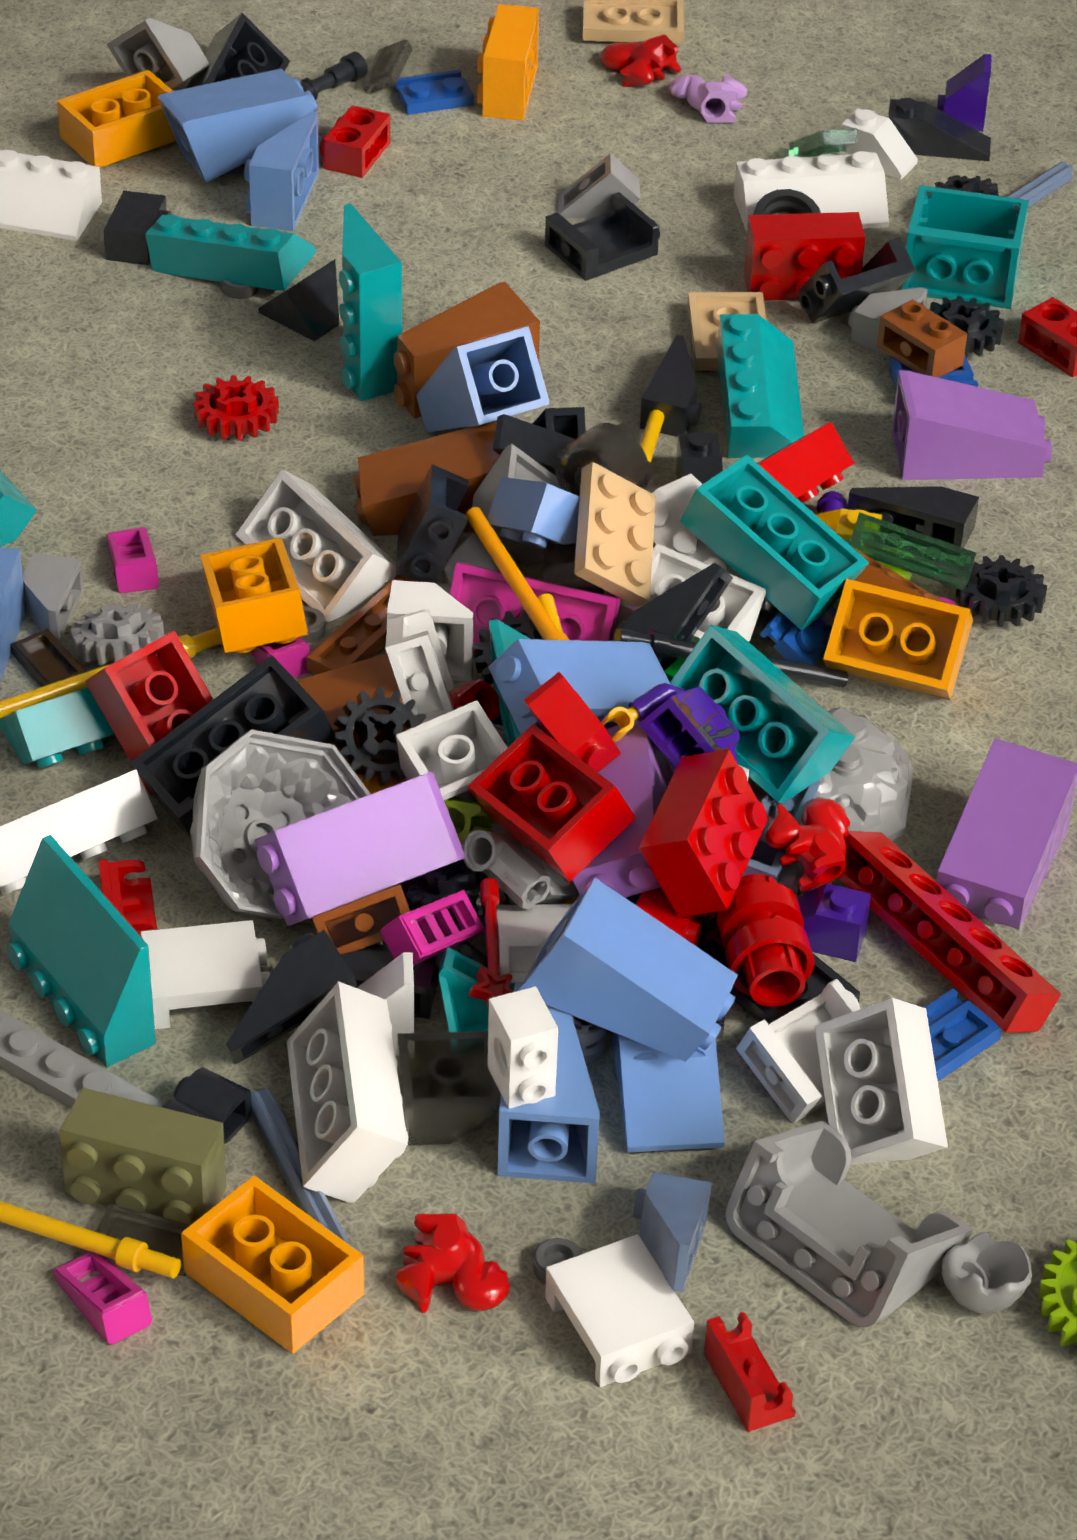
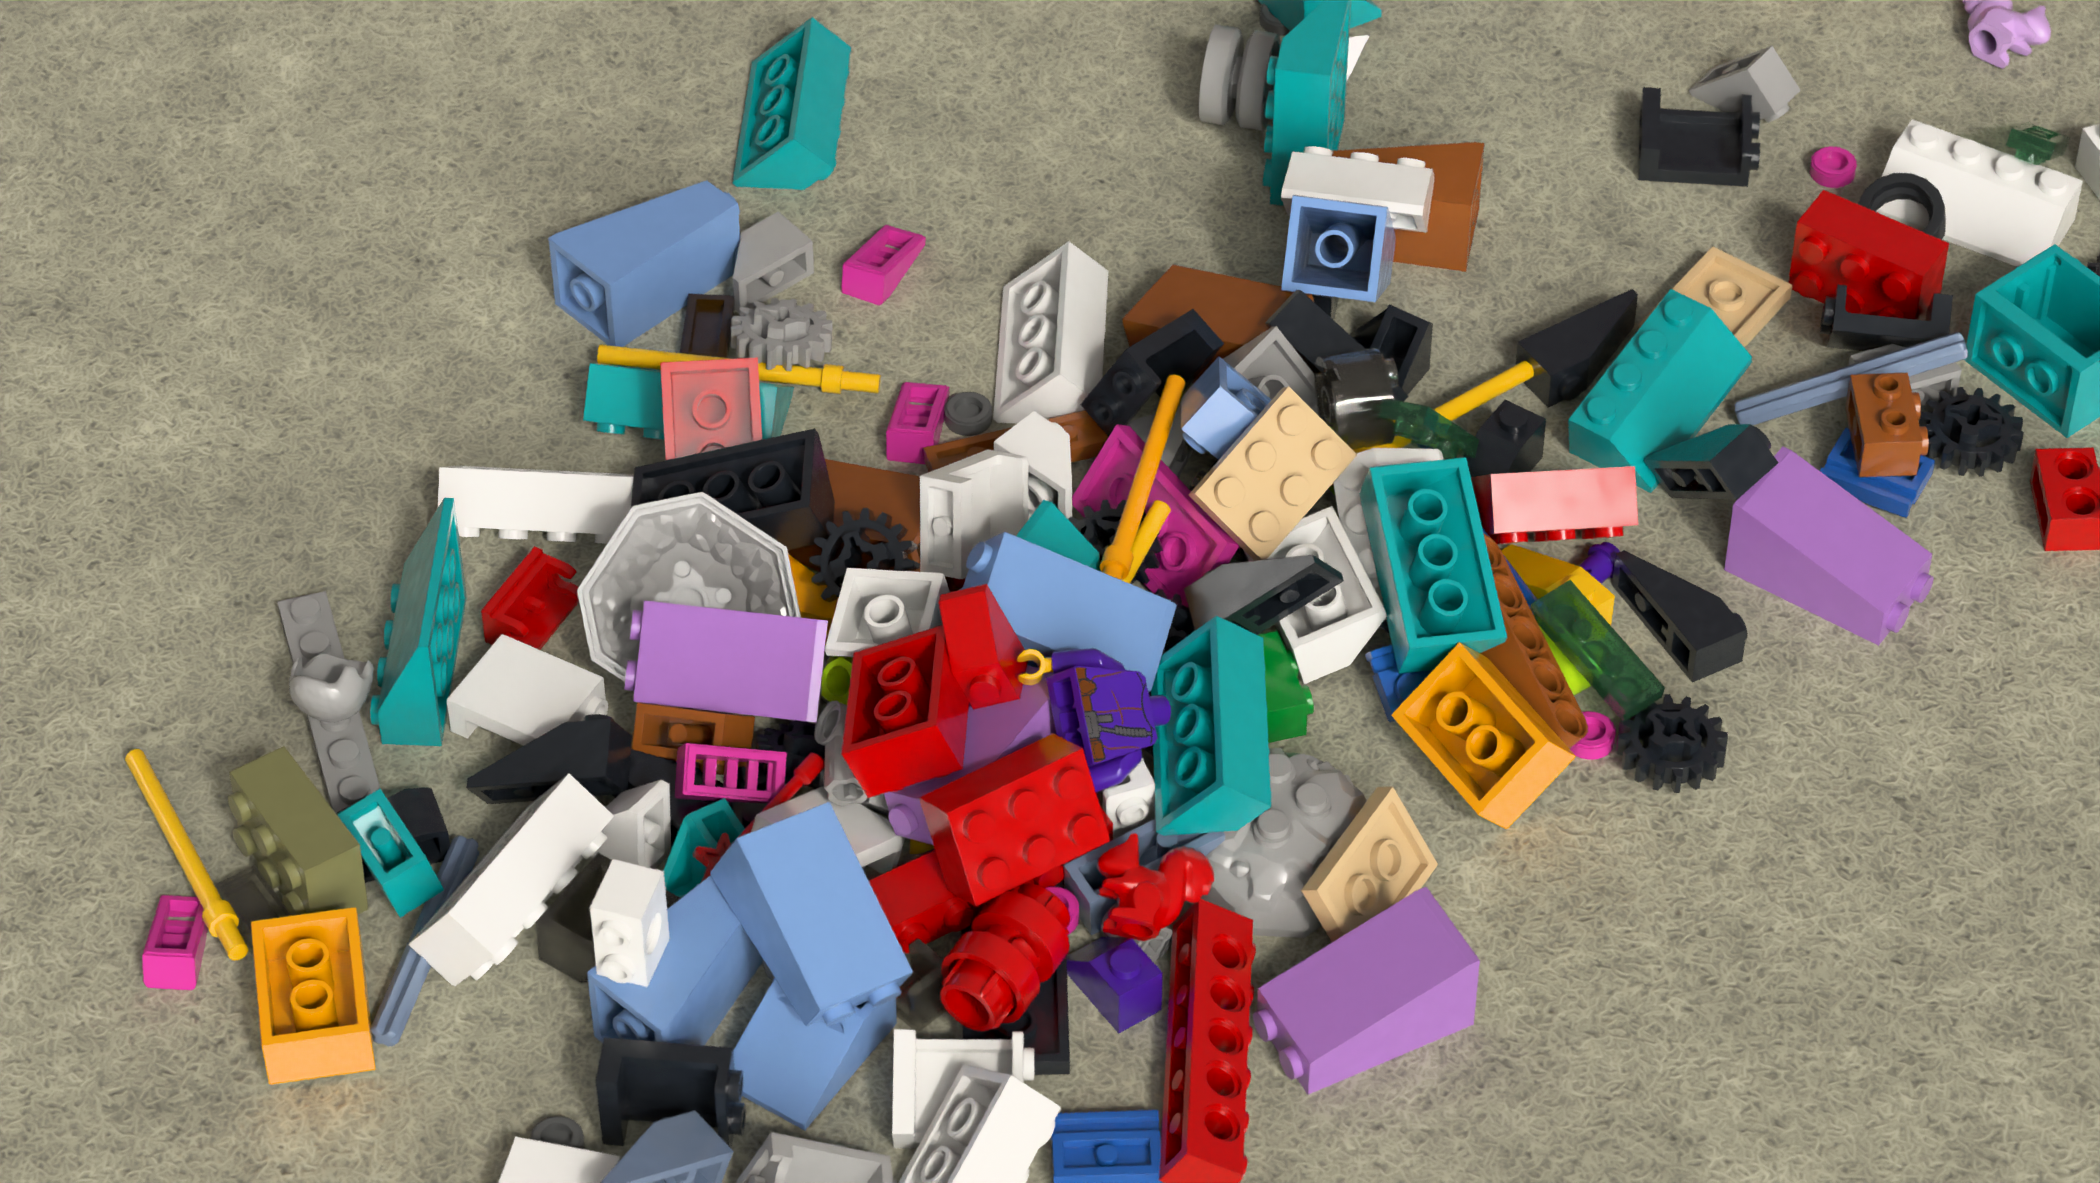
camera: 40 degrees right, 5 degrees up
(53, 1035) = (330, 686): none -> light grey hair
(236, 407) = (1129, 152): red gear -> none
(251, 1124) = (391, 853): none -> teal slope
(254, 595) = (922, 358): light orange brick -> none
(274, 323) = (1237, 77): none -> light grey wheel
(429, 343) = (1362, 179): none -> white slope
(450, 1256) = (467, 1082): red animal -> none
(618, 1162) = (666, 1080): none -> black panel
(664, 645) = (1208, 606): black bar -> none
(673, 459) = (1428, 429): none -> clear green plate
(699, 219) = (1833, 167): none -> dark pink tile
(865, 402) = (1714, 464): none -> black slope
(868, 327) = (1835, 383): none -> sand blue axle
(924, 762) = (1369, 866): none -> tan plate

